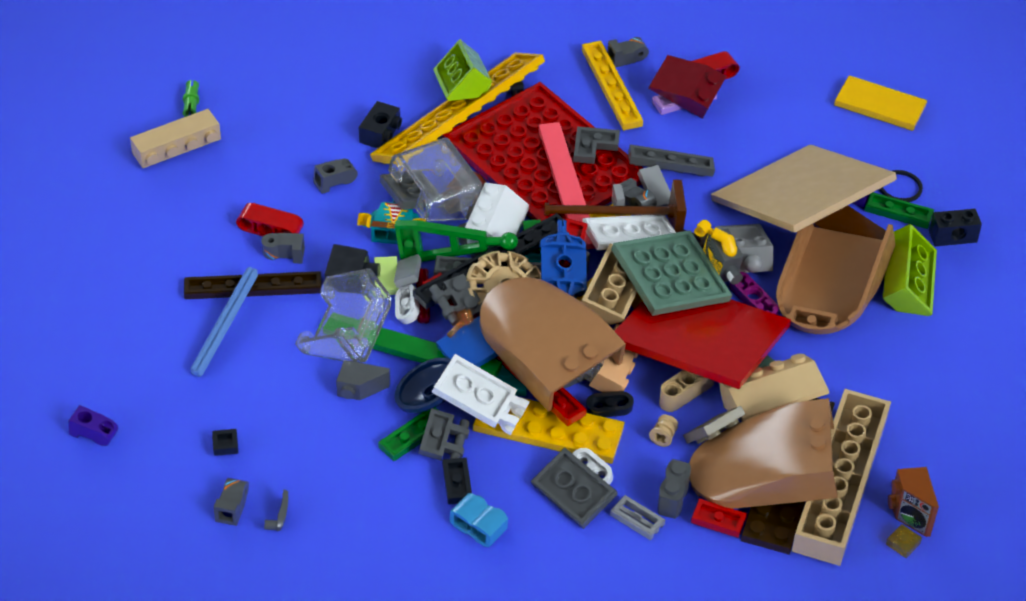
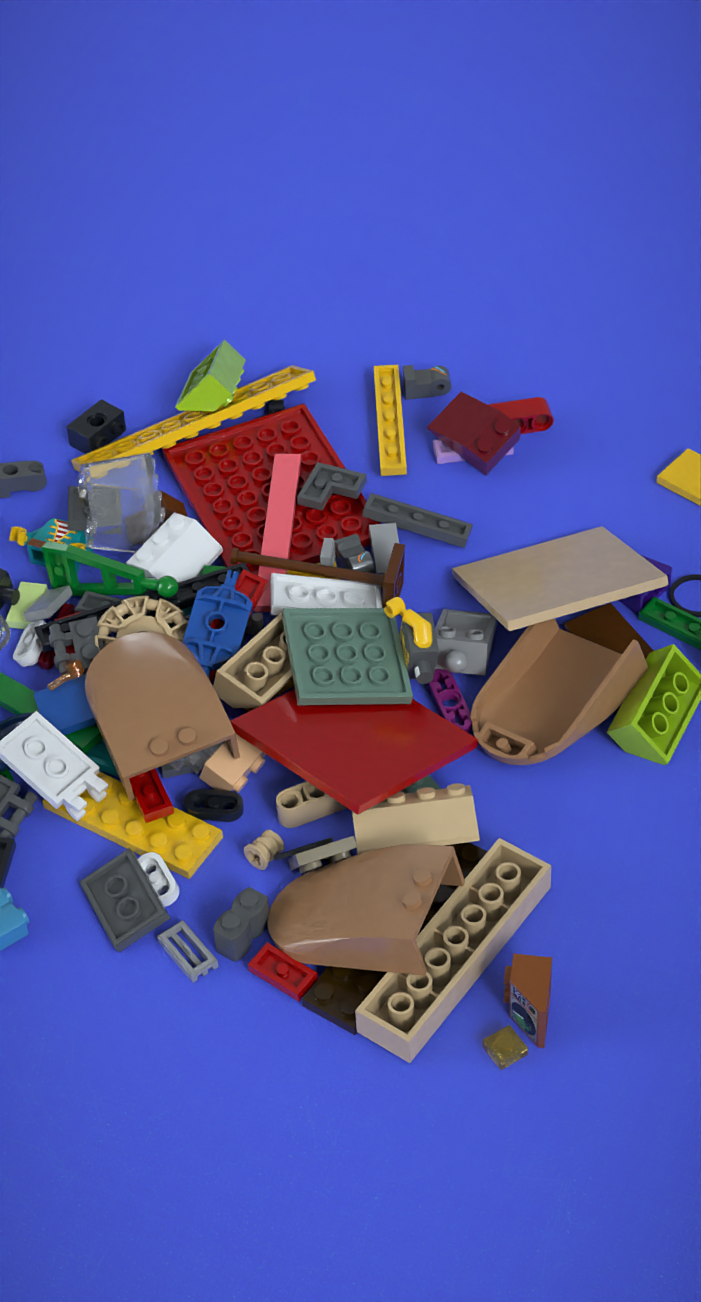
camera: 20 degrees right, 0 degrees up
(682, 431) = (303, 848): none -> black piece

